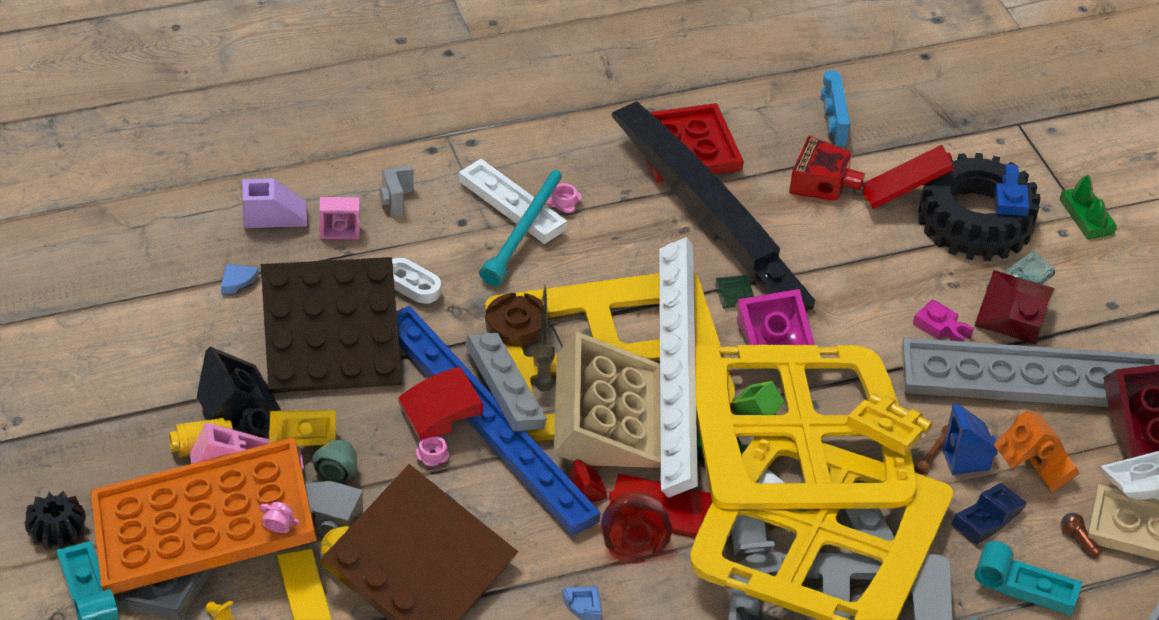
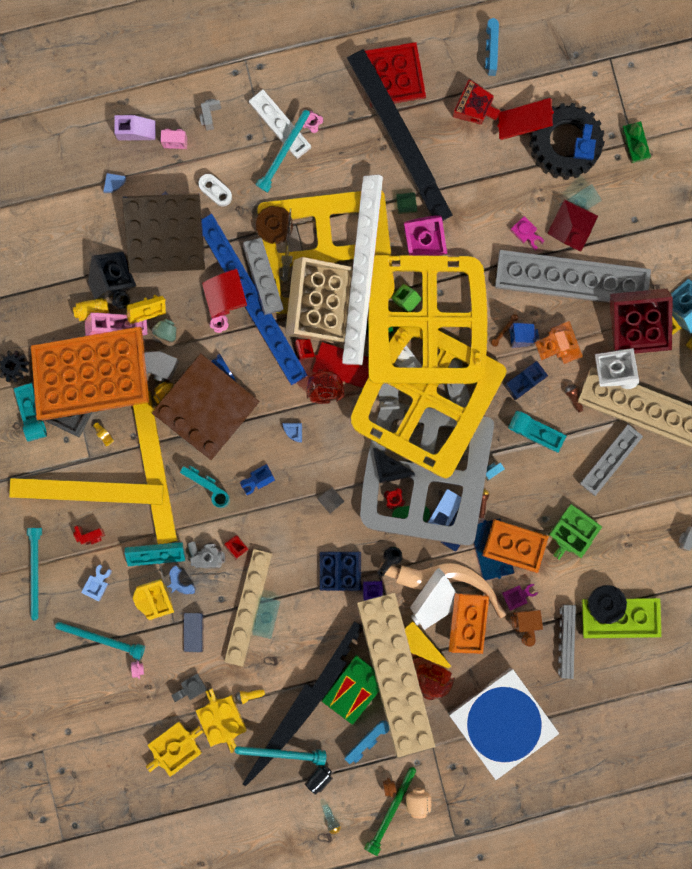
camera: 10 degrees right, 40 degrees up
(278, 517) = (127, 394): bright pink plate -> none
(888, 423) = (473, 330): yellow plate -> none

